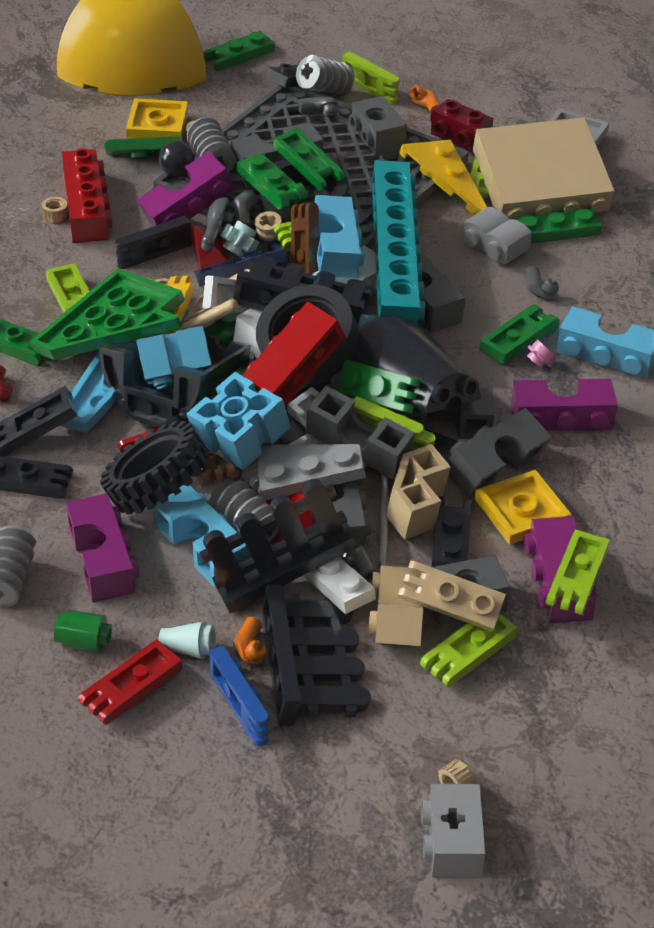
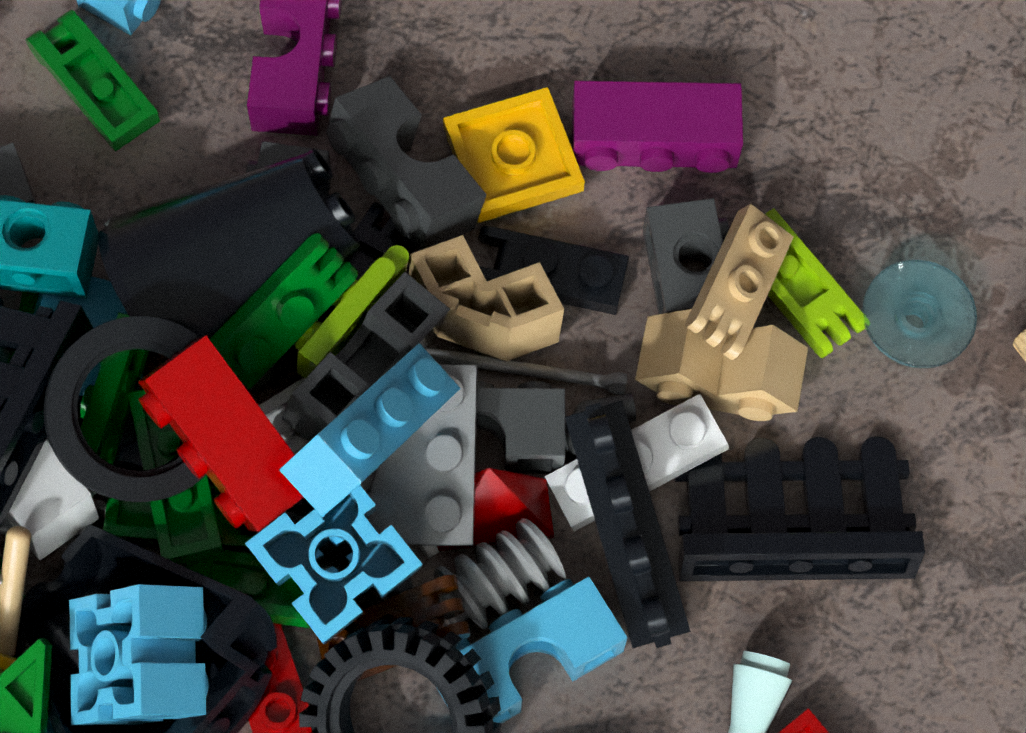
camera: 85 degrees left, 25 degrees up
(241, 696) = (882, 621): blue hinge -> none
(246, 642) = (763, 608): orange arm -> none
(287, 382) = (369, 430): none -> medium azure arch
(460, 696) = (932, 295): none -> clear light blue dish
(540, 354) = (156, 56): bright pink plate -> none
(578, 570) = (715, 95): lime hinge -> none

